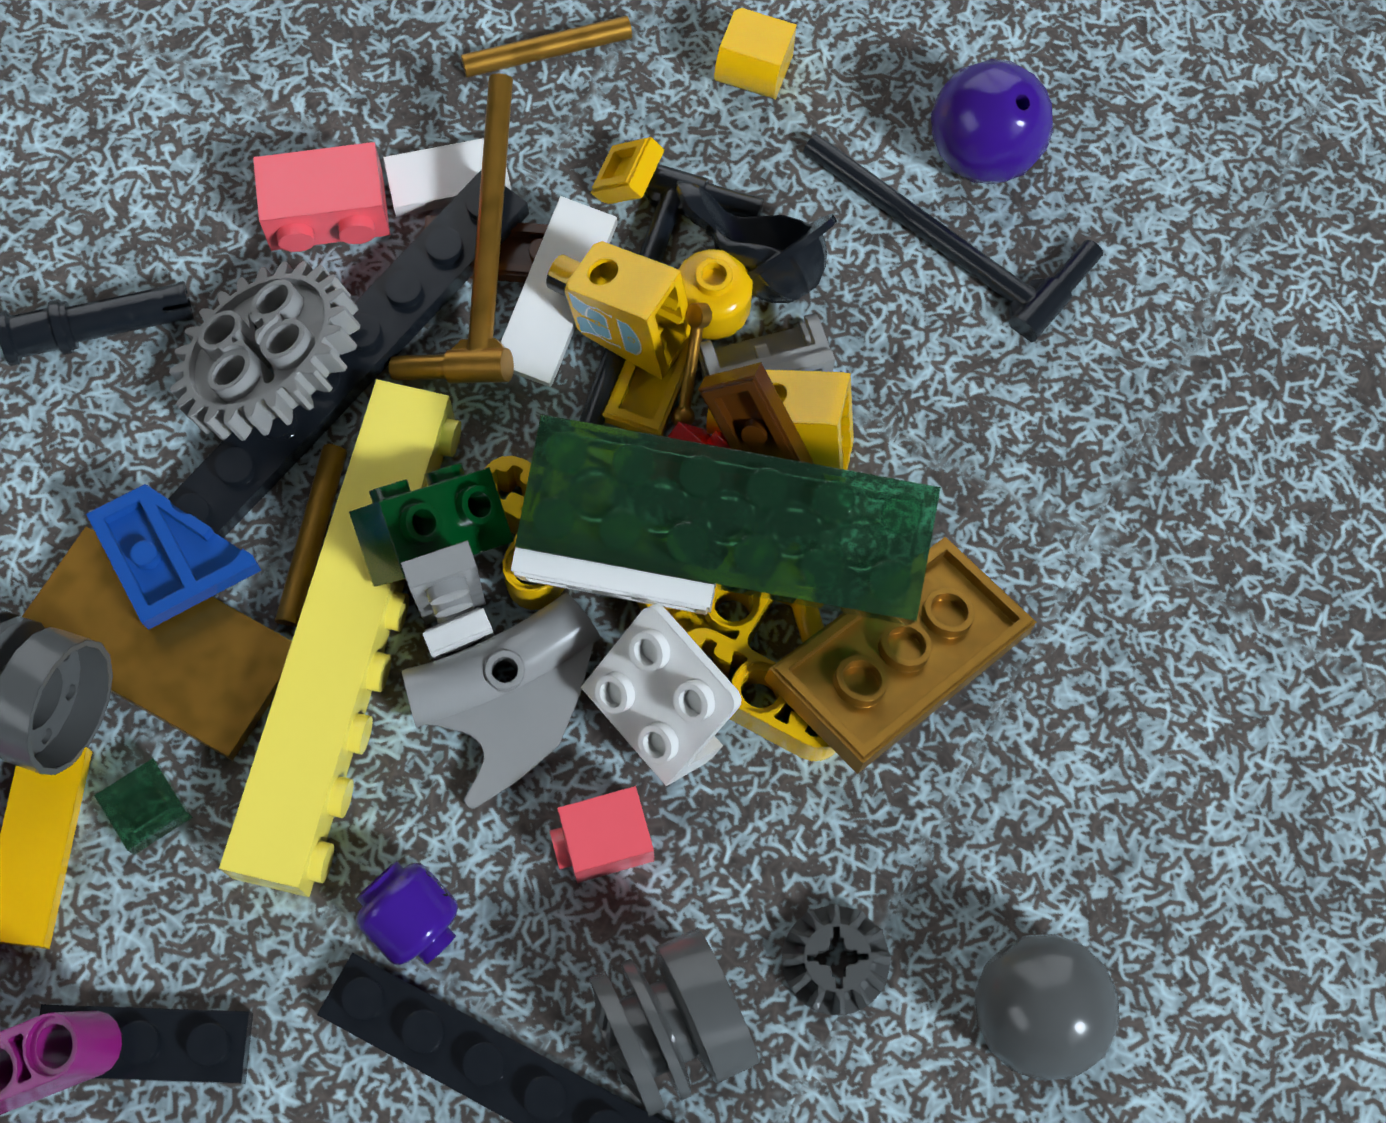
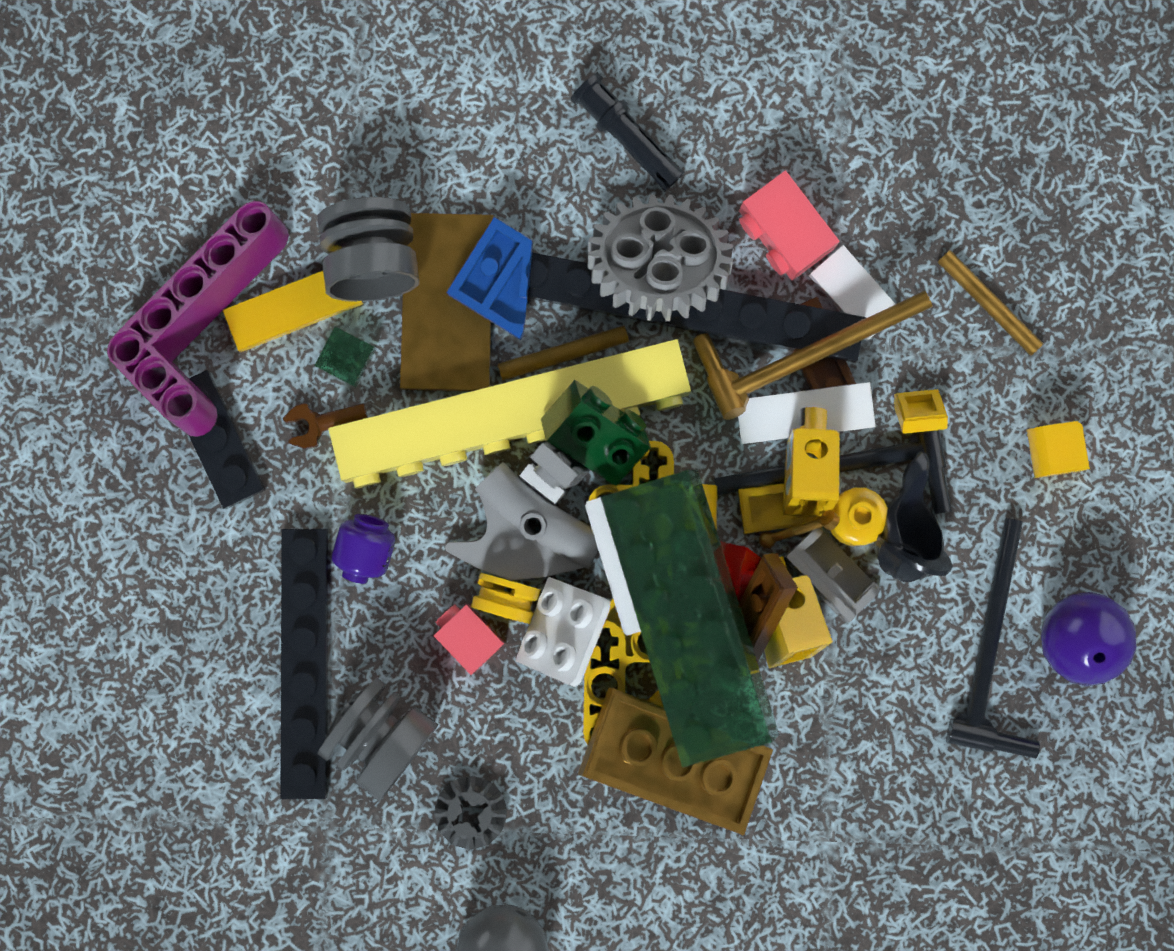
camera: 65 degrees right, 15 degrees up
(207, 891) = (321, 422): none -> reddish brown bar
(577, 756) = (502, 603): none -> yellow wheel

